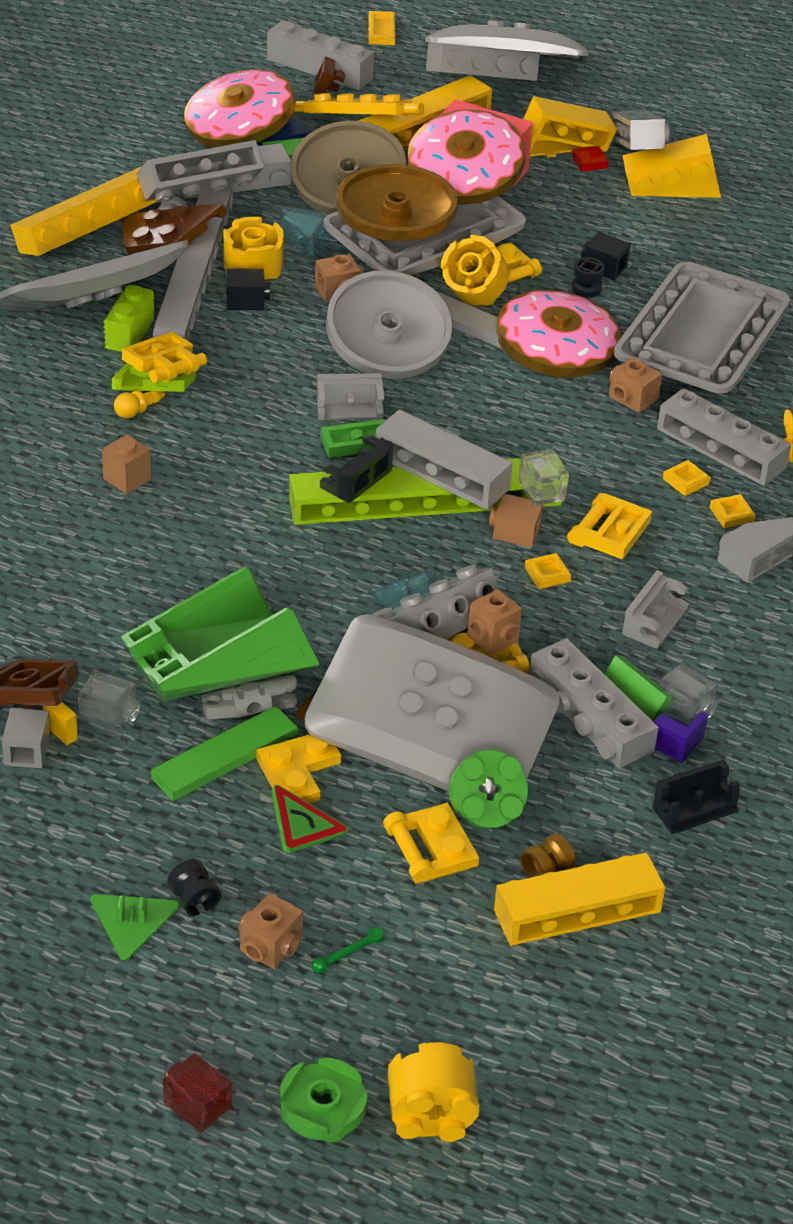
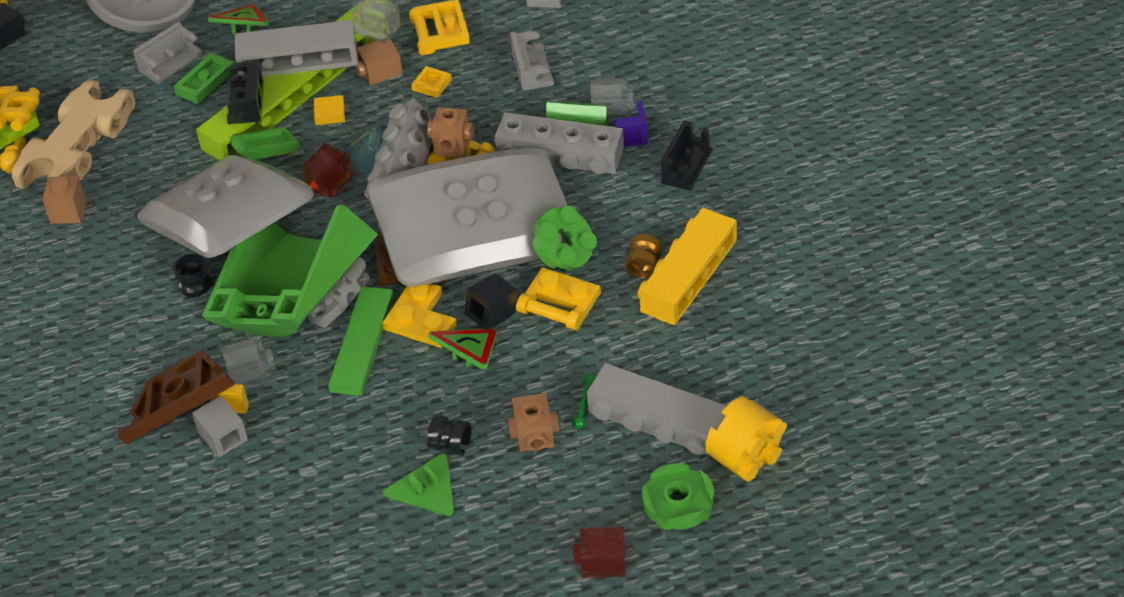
camera: 35 degrees left, 5 degrees up
(150, 595) = (192, 275): none -> black wheel
(216, 411) = (82, 123): none -> tan piece
(230, 551) = (224, 204): none -> light grey wedge
(338, 527) = (265, 143): none -> bright green tile
(358, 584) = (328, 170): none -> clear red brick
(364, 798) = (491, 301): none -> black brick
(388, 994) = (654, 408): none -> light grey brick
(430, 535) = (329, 110): none -> yellow tile
(451, 408) = (246, 15): none -> bright green piece

